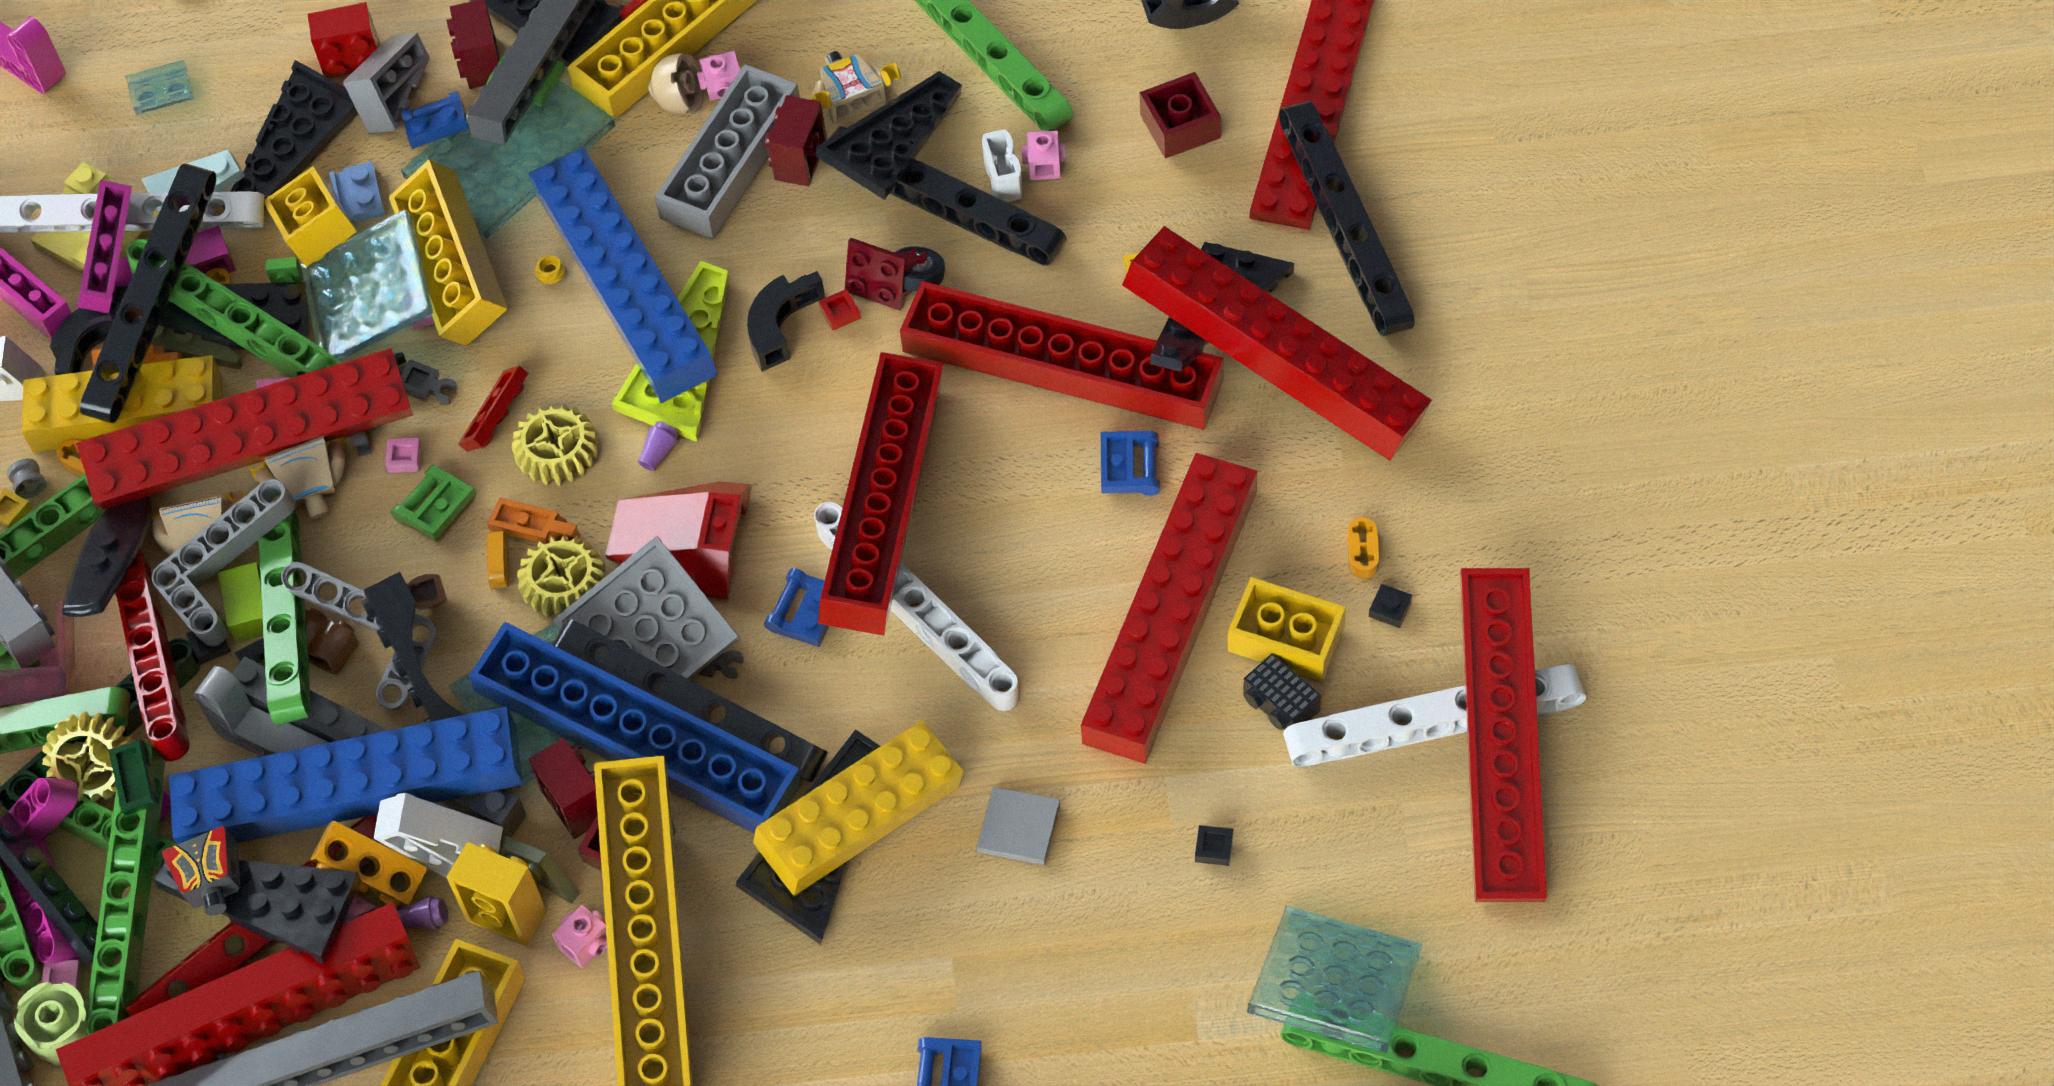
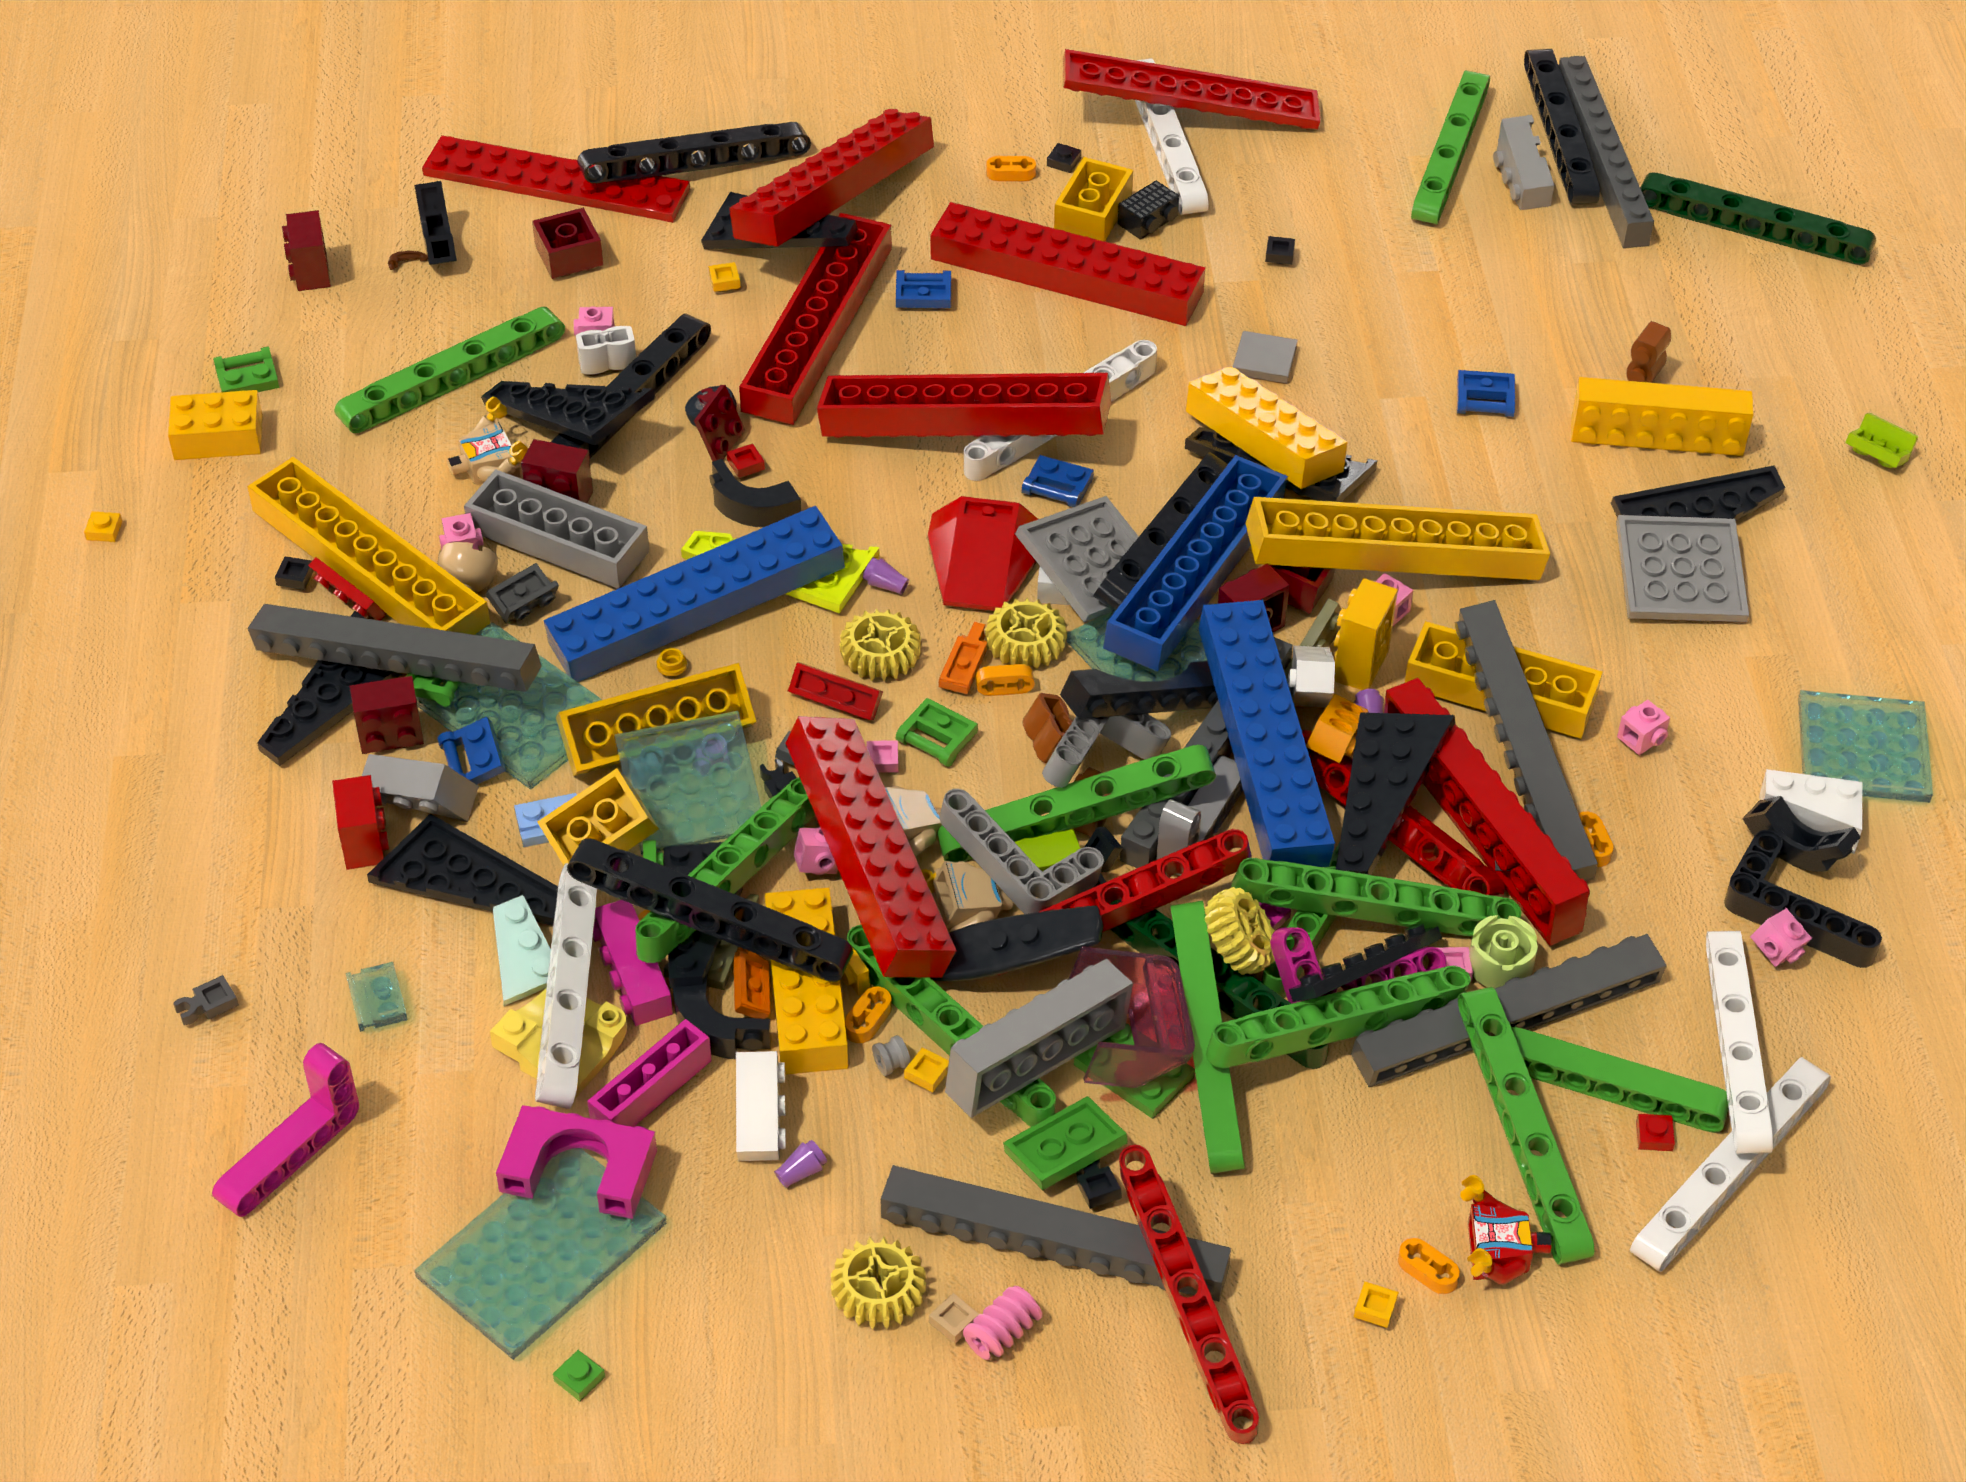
camera: 95 degrees left, 10 degrees down
(104, 246) = (632, 971): dark pink brick -> none
(133, 777) = (1278, 868): dark green tile -> none
(206, 869) = (1371, 808): torso -> none
(648, 136) = (522, 593): none -> dark grey bracket
(1335, 979) = (1394, 184): clear light blue plate -> none

